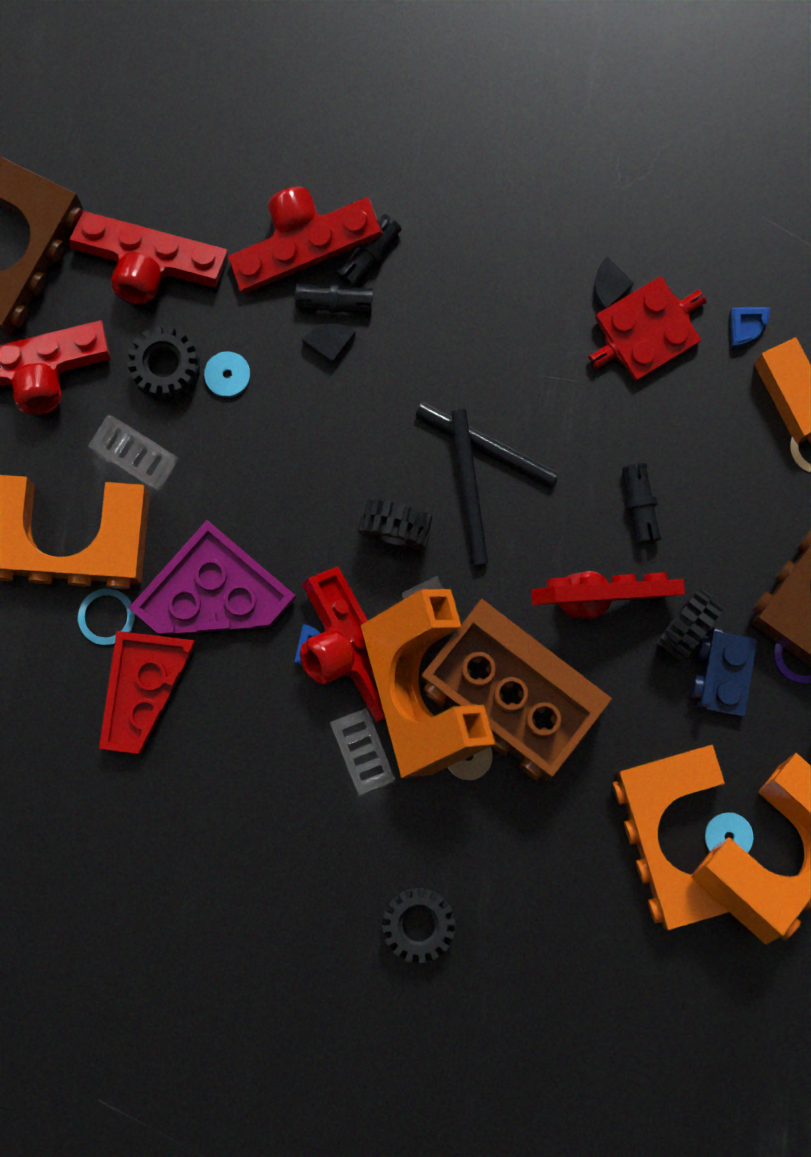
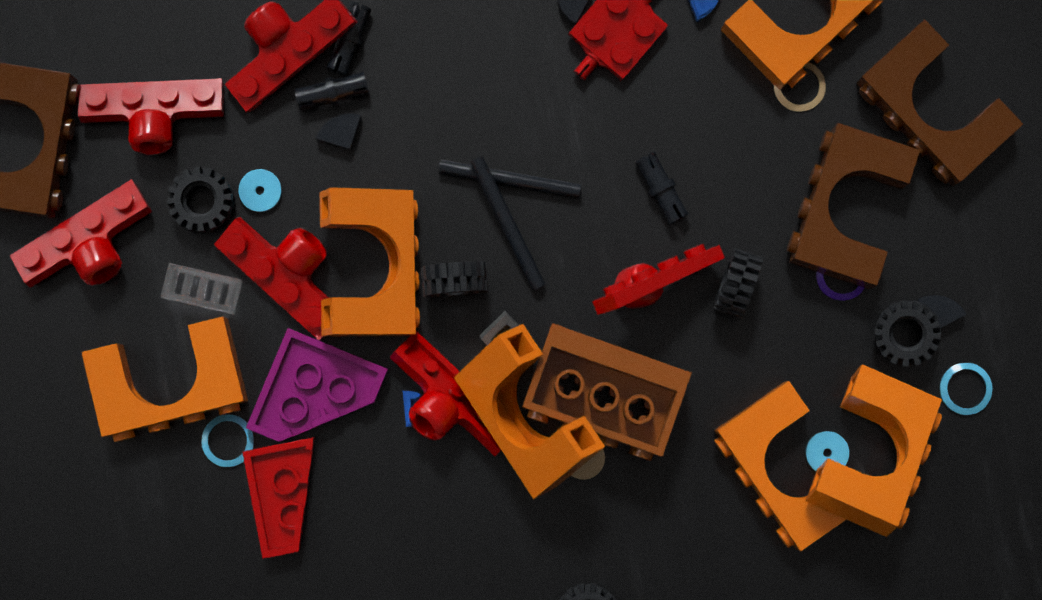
camera: 25 degrees left, 5 degrees up
(223, 463) = (281, 270): none -> red plate
(349, 442) = (391, 219): none -> orange arch
(375, 782) = (512, 506): clear slope -> none
(725, 673) = (780, 313): dark blue bracket -> none

